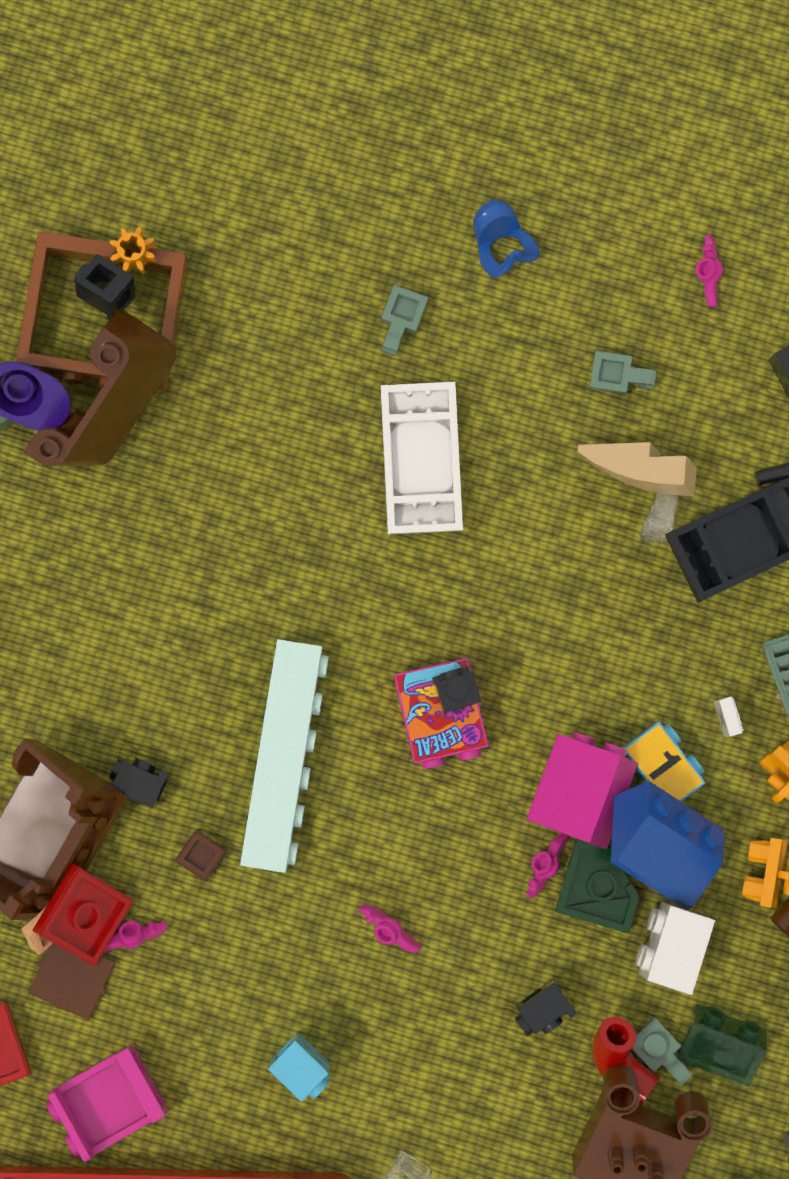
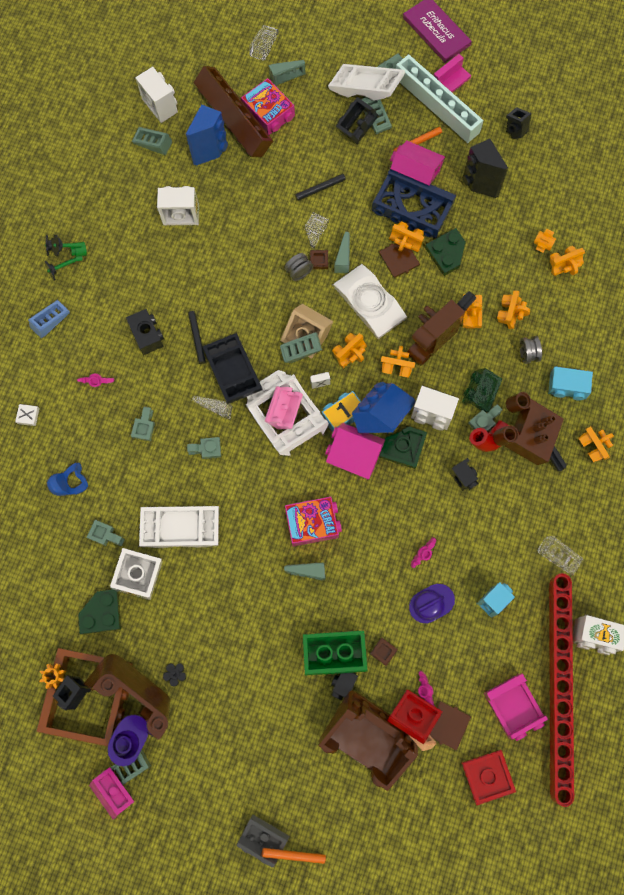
camera: 80 degrees left, 10 degrees down
(148, 469) = (174, 674): none -> black plant
(189, 763) = (334, 653): none -> green slope
(254, 325) = (101, 613): none -> dark green plate
(282, 756) = (332, 605): light aqua brick -> none
(294, 946) = (432, 603): none -> dark purple piece
(325, 384) = (136, 574): none -> white brick
(345, 713) = (312, 570): none -> sand green slope
(456, 689) = (301, 509): black brick -> none
(546, 865) = (392, 472): dark pink piece -> none
(579, 504) = (208, 448): none -> sand green plate
(616, 679) = (301, 430): none -> white wedge
(632, 146) = (27, 415): none -> white tile
(643, 467) = (192, 414): tan slope -> none
(663, 646) = (283, 408): none -> bright pink hinge

